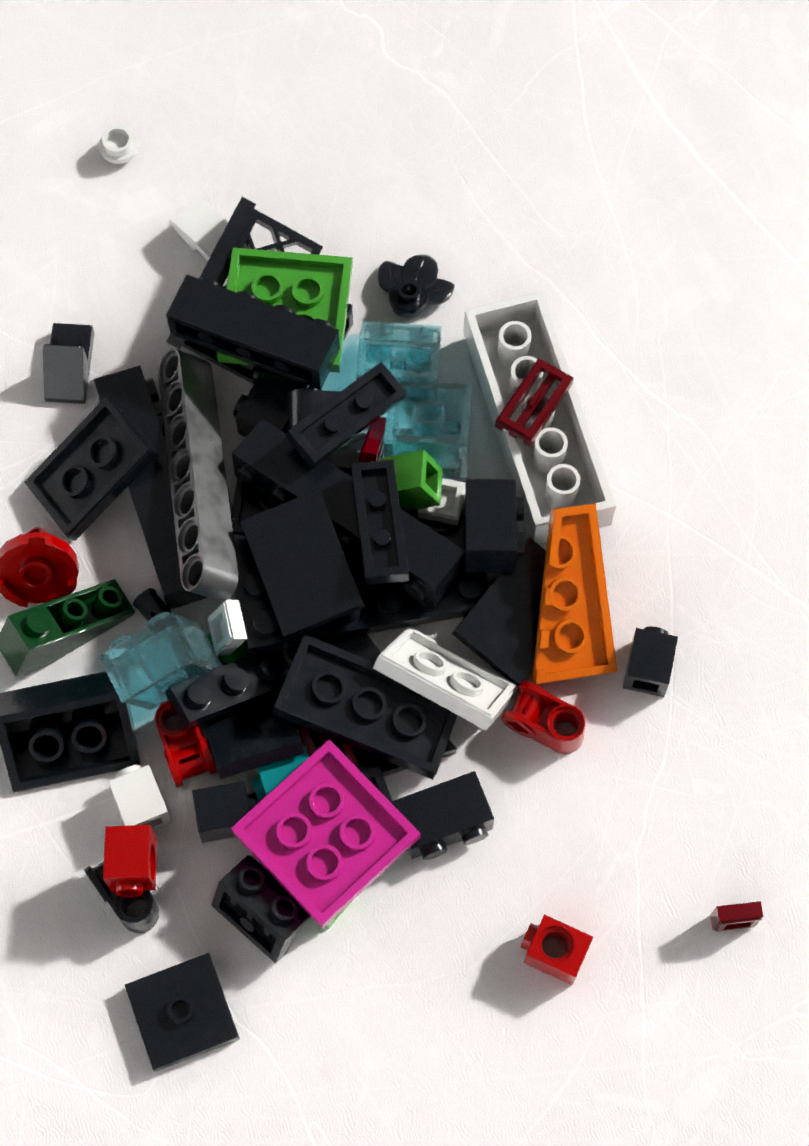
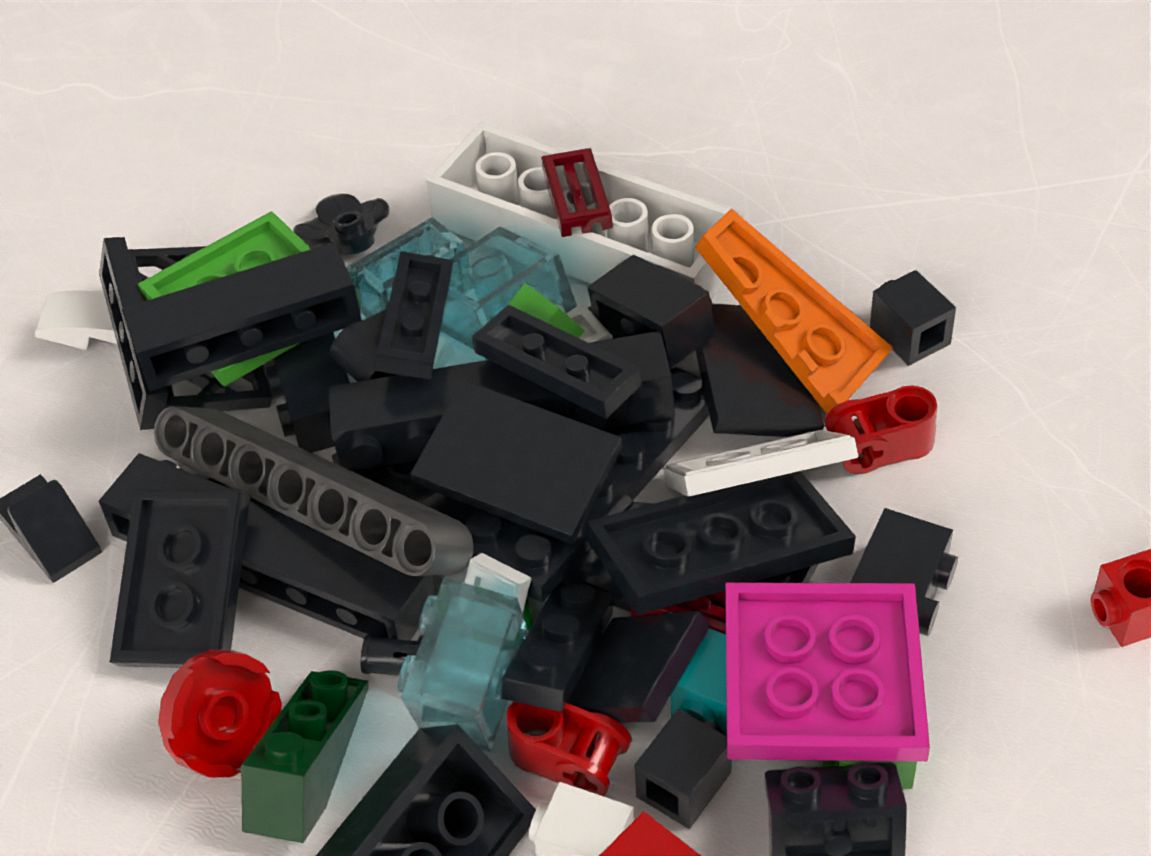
camera: 40 degrees left, 20 degrees down
(374, 442) = (461, 330): dark red tile -> none

